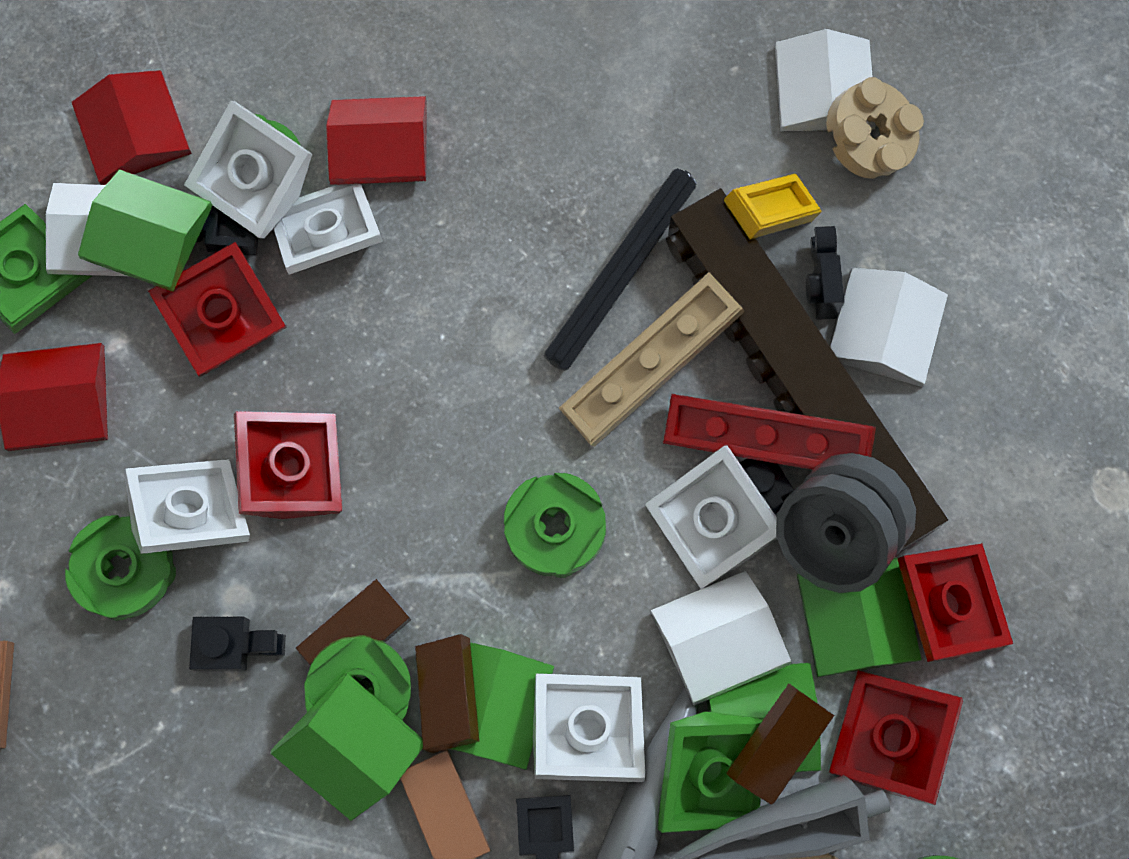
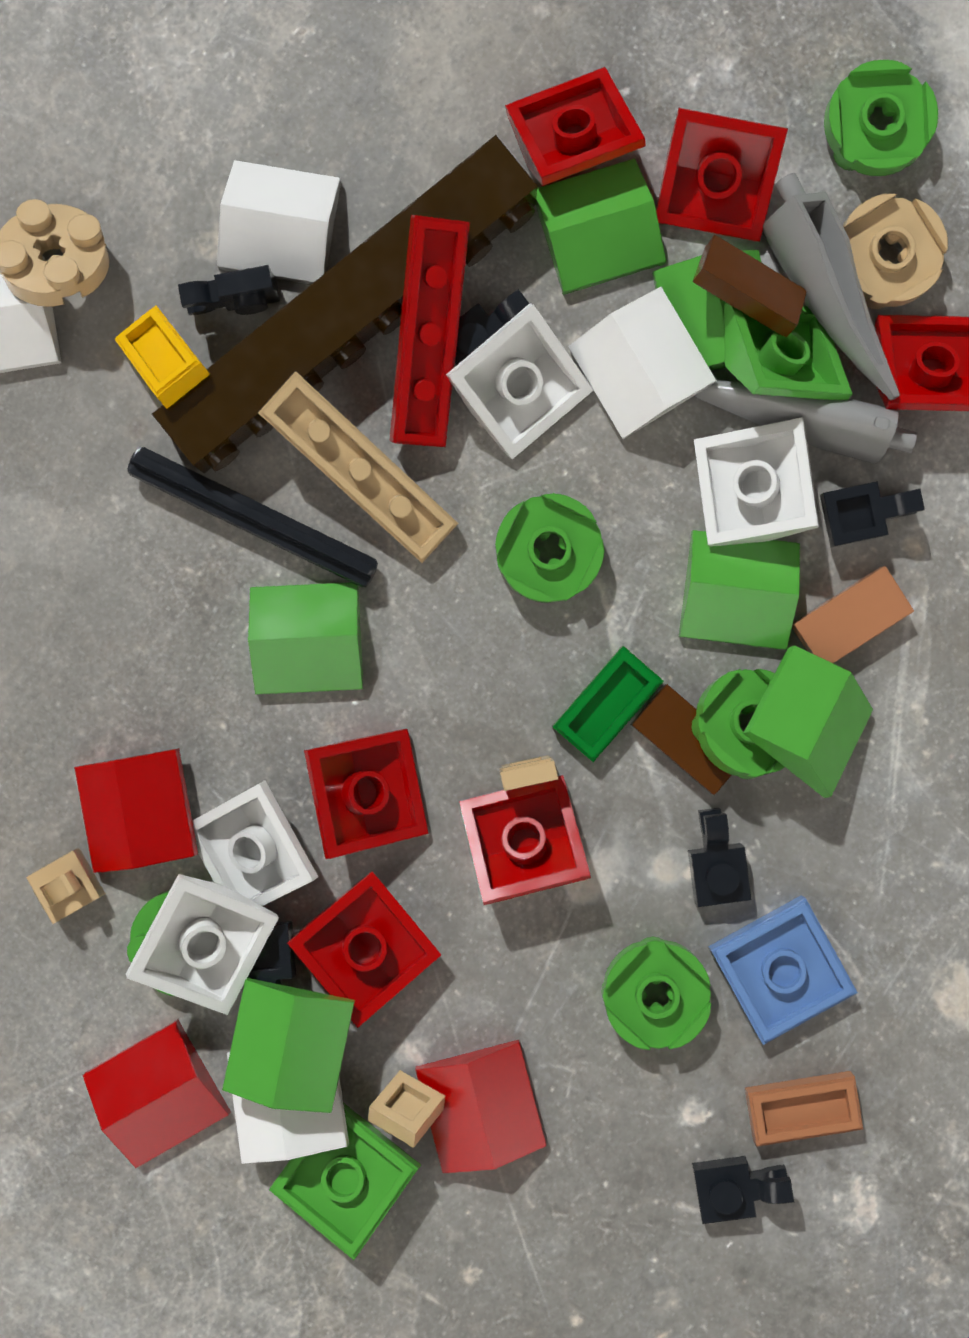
camera: 100 degrees left, 15 degrees up
(66, 325) = (406, 1108): none -> tan tile
(116, 693) = (782, 969): none -> medium blue tile
(184, 506) = (590, 937): white slope -> none
(324, 76) = (65, 885): none -> tan tile
(348, 474) = (528, 772): none -> tan tile
(357, 329) = (366, 792): none -> red slope
(401, 561) = (607, 703): none -> green tile
(446, 693) = (741, 631): reddish brown tile -> none
(506, 299) = (305, 638): none -> bright green slope
(846, 522) = (522, 234): dark grey wheel -> none

